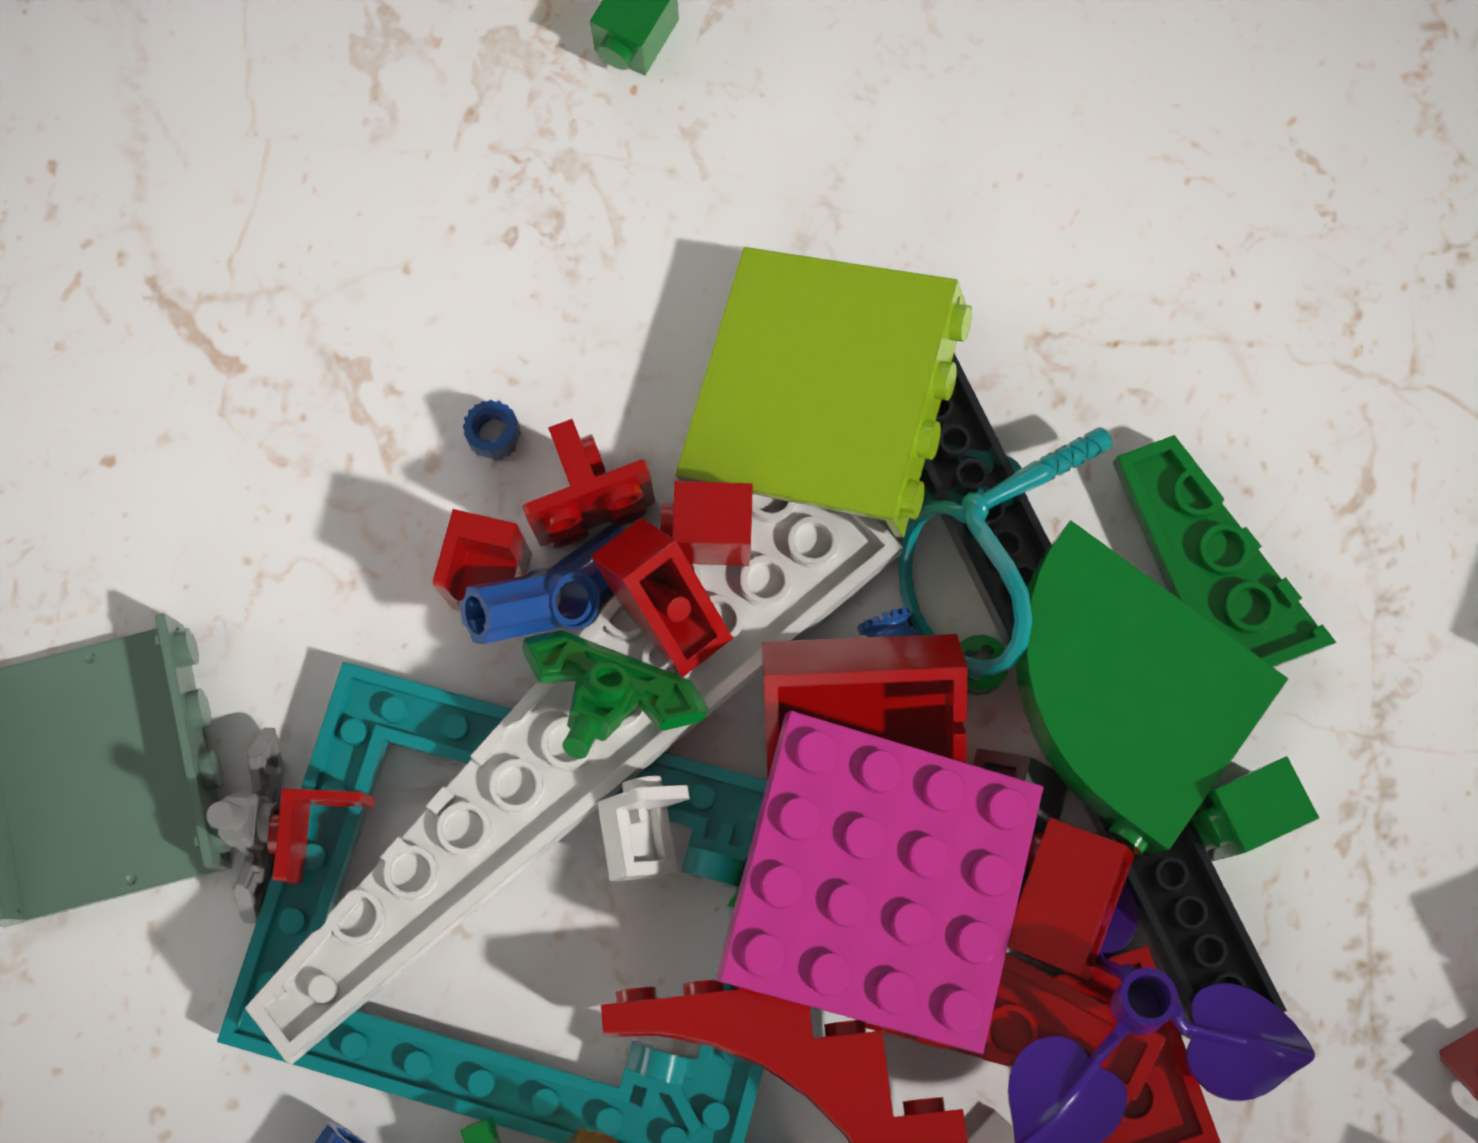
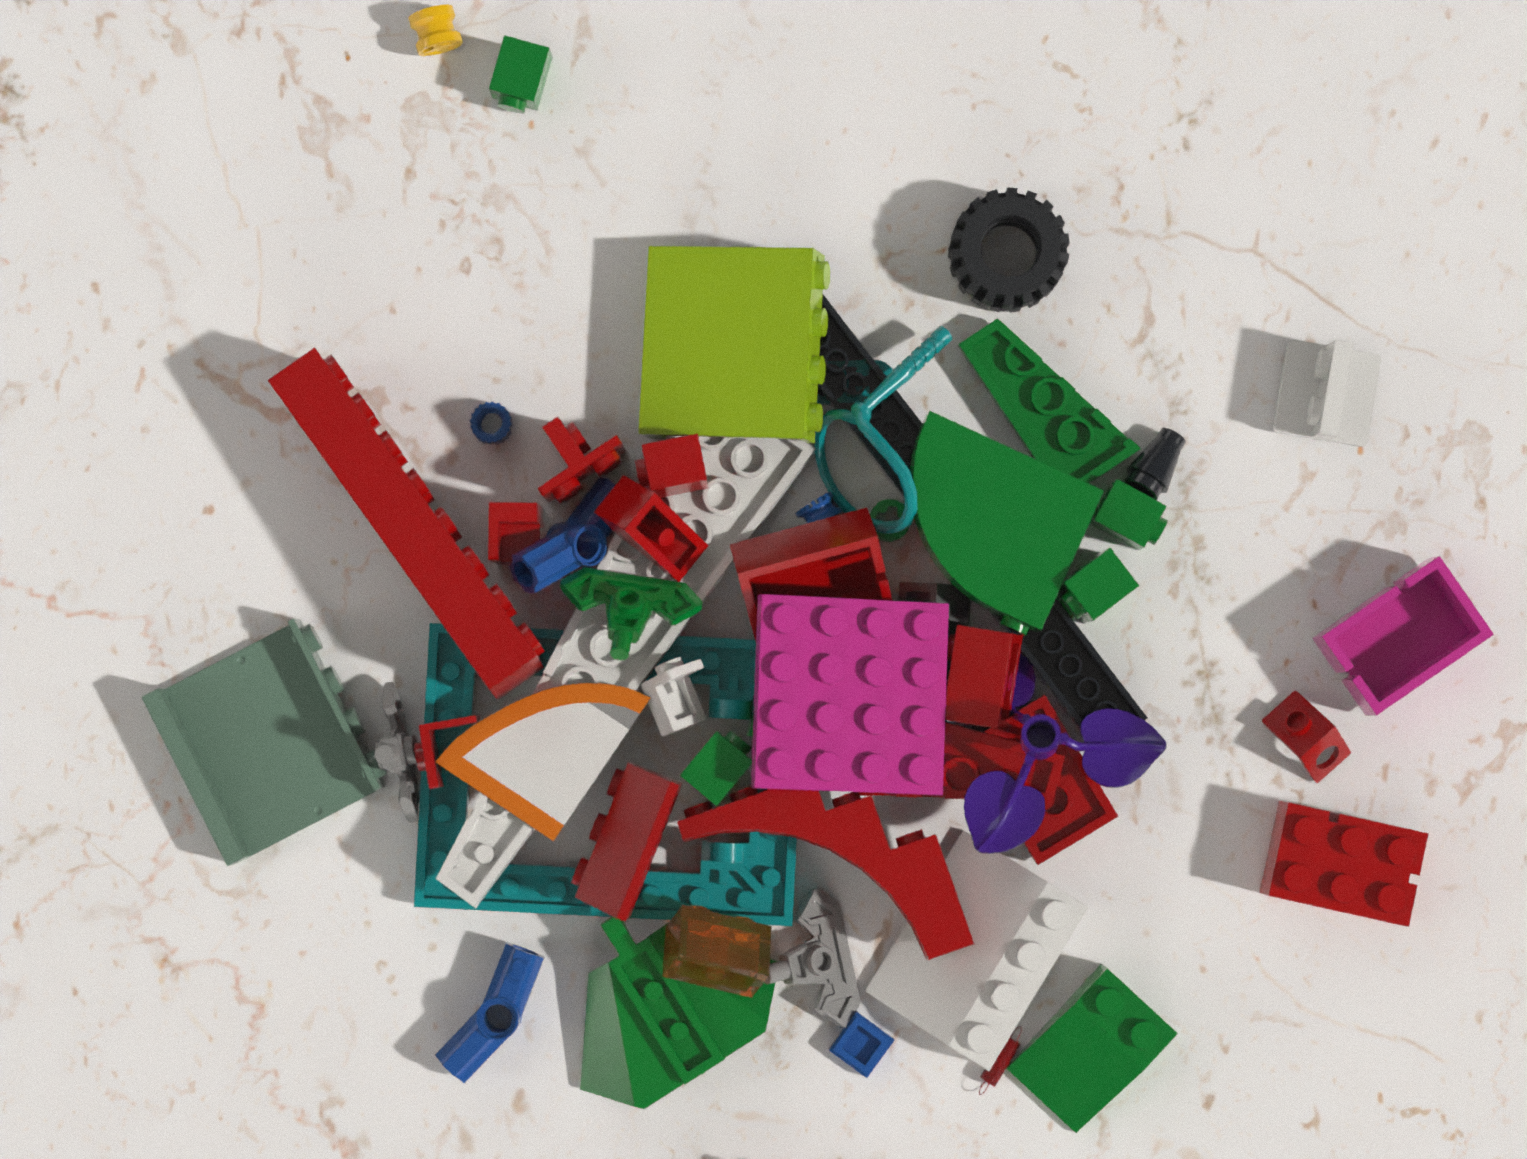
camera: 15 degrees left, 10 degrees up
(346, 525) = (401, 515): none -> red brick
(444, 863) = (545, 750): none -> sticker
(524, 1018) = (626, 840): none -> red slope
(677, 940) = (718, 766): none -> green brick
(1235, 316) = (1016, 211): none -> black tyre
(1308, 728) = (1130, 515): none -> green brick
(1349, 671) = (1155, 465): none -> black cone

